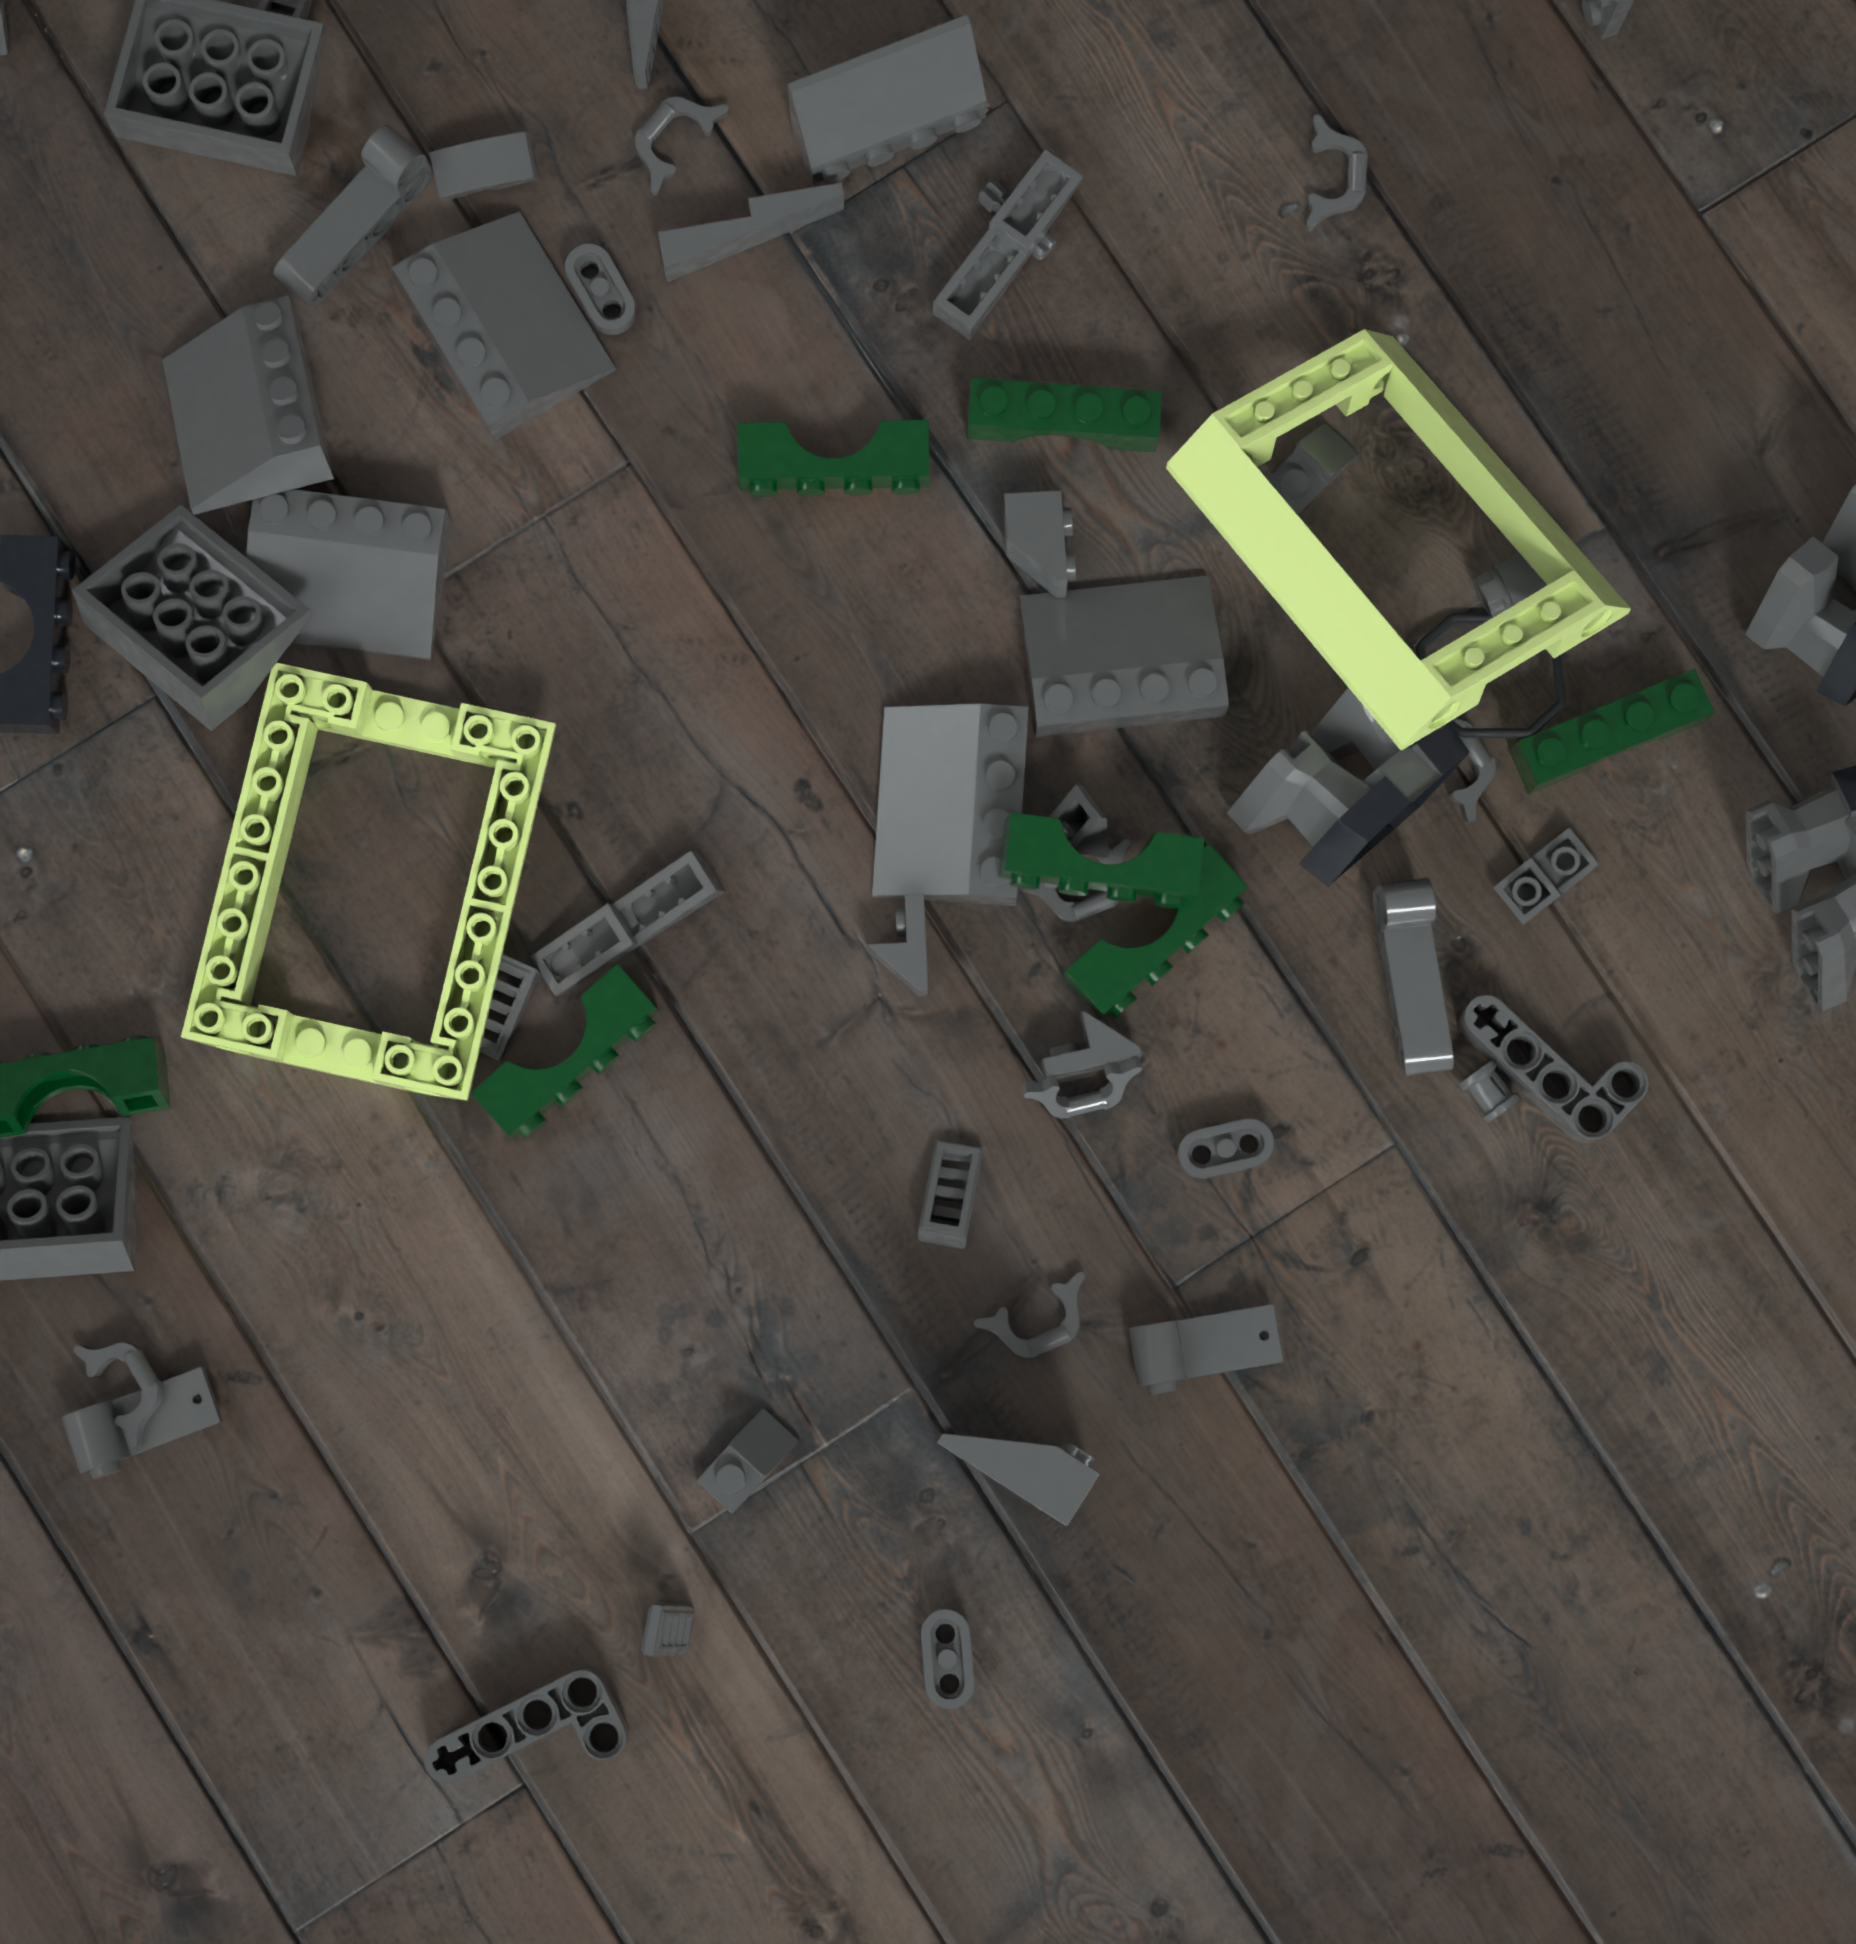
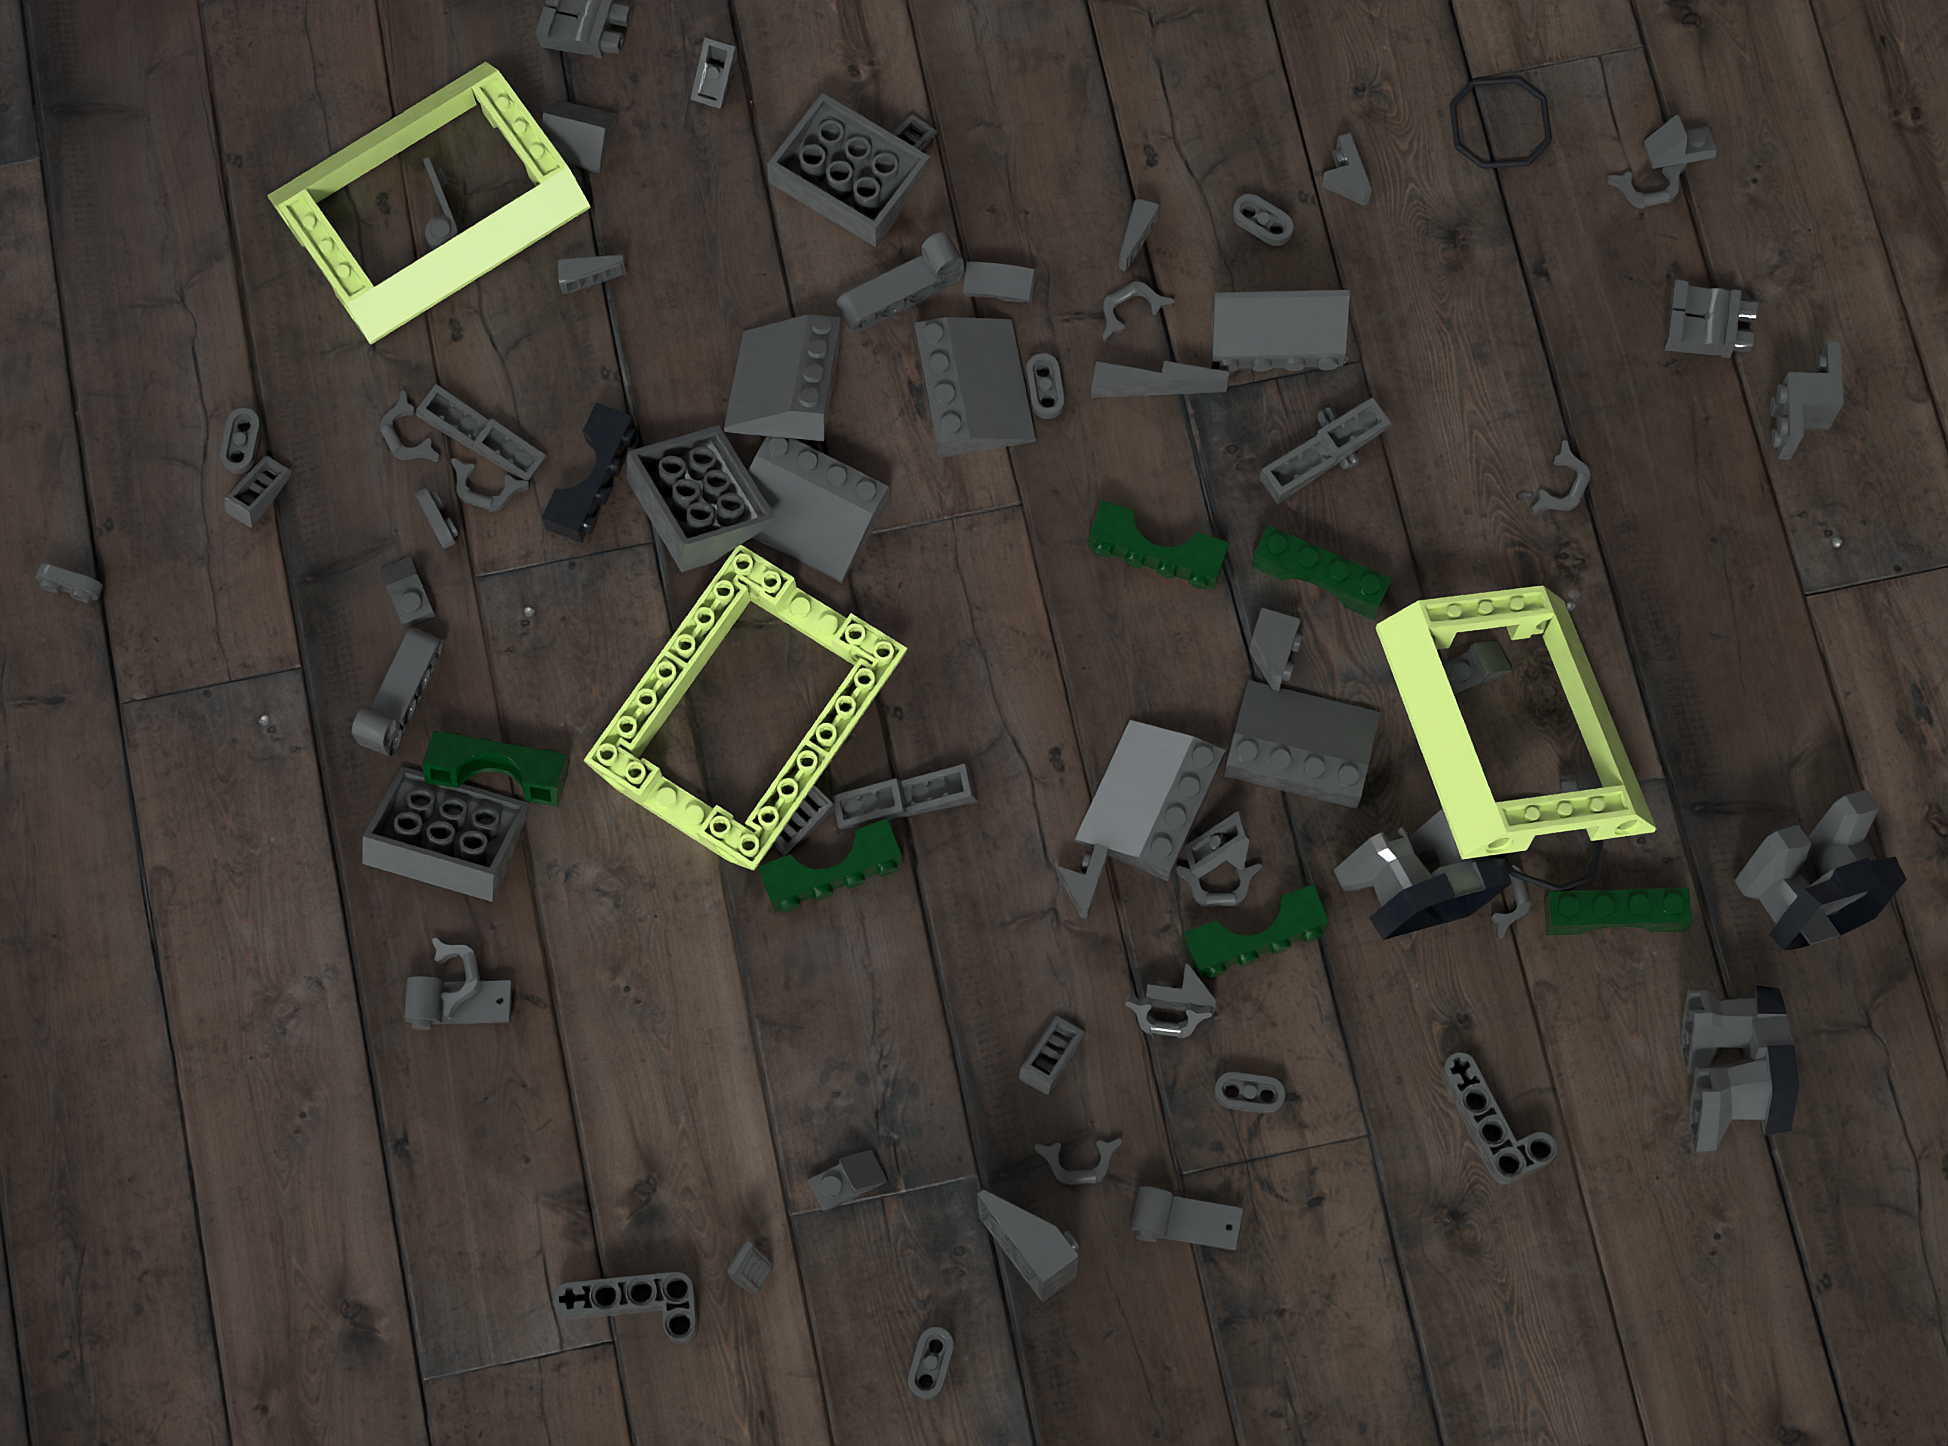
camera: 25 degrees right, 10 degrees down
(1040, 853) = (1196, 846): dark green arch -> none
(1412, 975) = (1421, 1023): dark grey beam -> none
(1489, 1091) = (1445, 1121): dark grey bush -> none
(1546, 876) = (1538, 993): dark grey slope -> none

